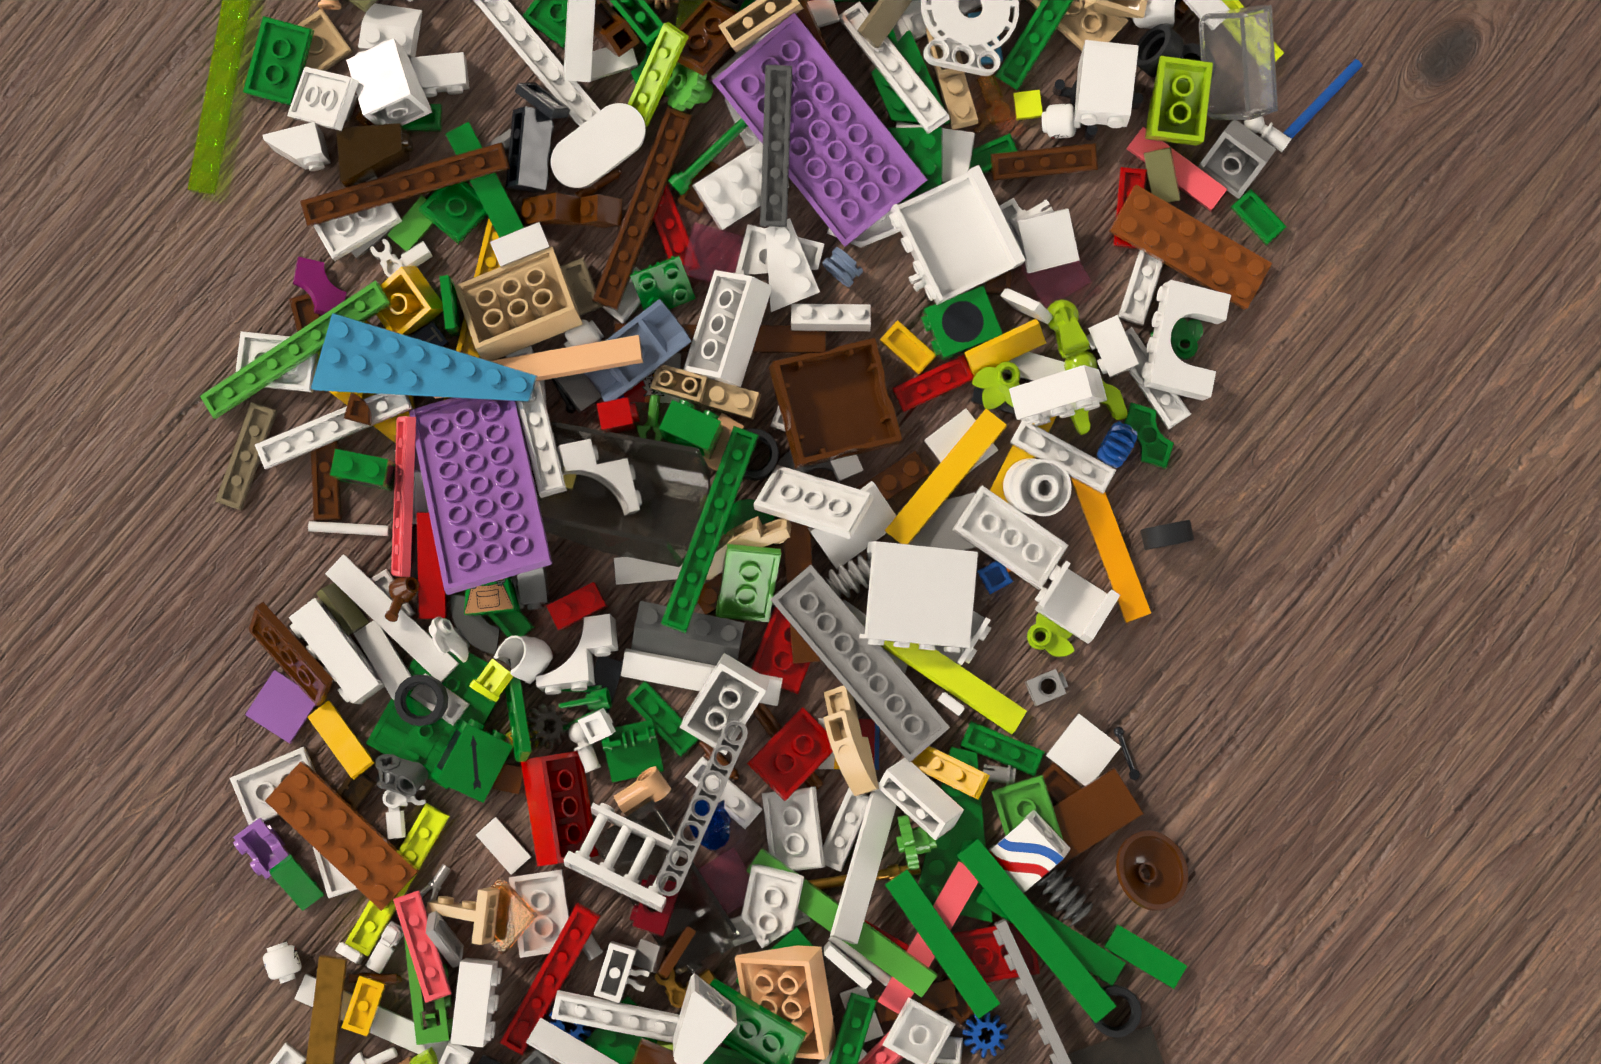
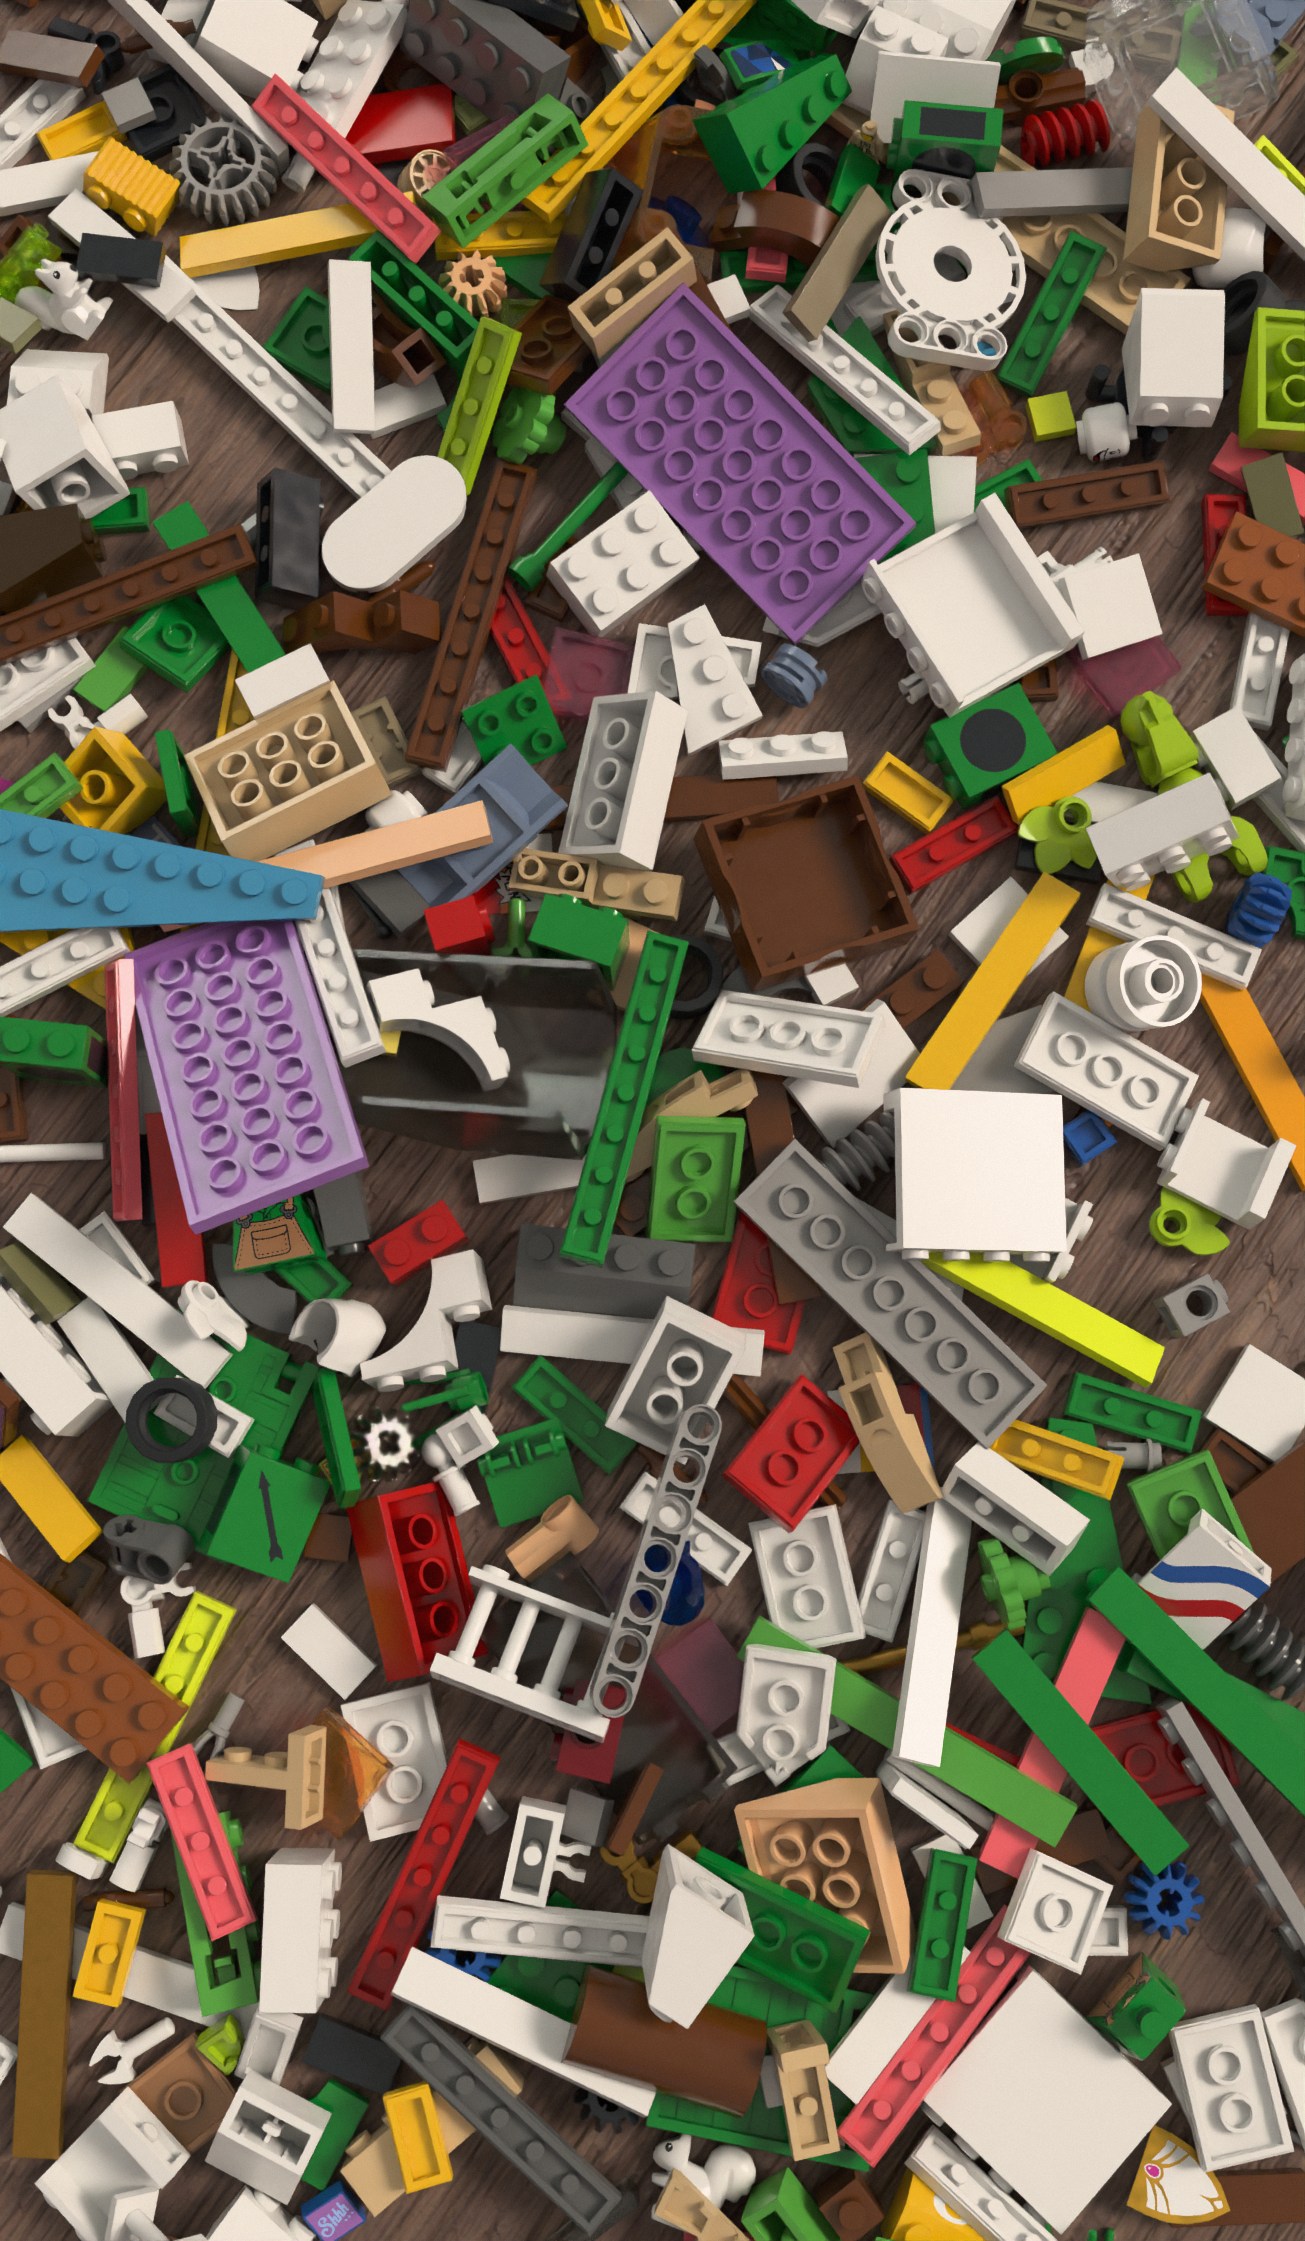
camera: 10 degrees left, 5 degrees down
(358, 410) = (39, 959): reddish brown tile -> none
(401, 591) = (130, 1245): reddish brown bar -> none
(444, 939) = (238, 1823): light grey tile -> none
(492, 680) = (288, 1377): neon yellow tile -> none
(542, 100) = (302, 463): black tile -> none
(776, 145) = (674, 490): dark grey tile -> none
(951, 704) = (1041, 1347): white tile -> none
(1026, 305) = (1091, 707): white tile -> none

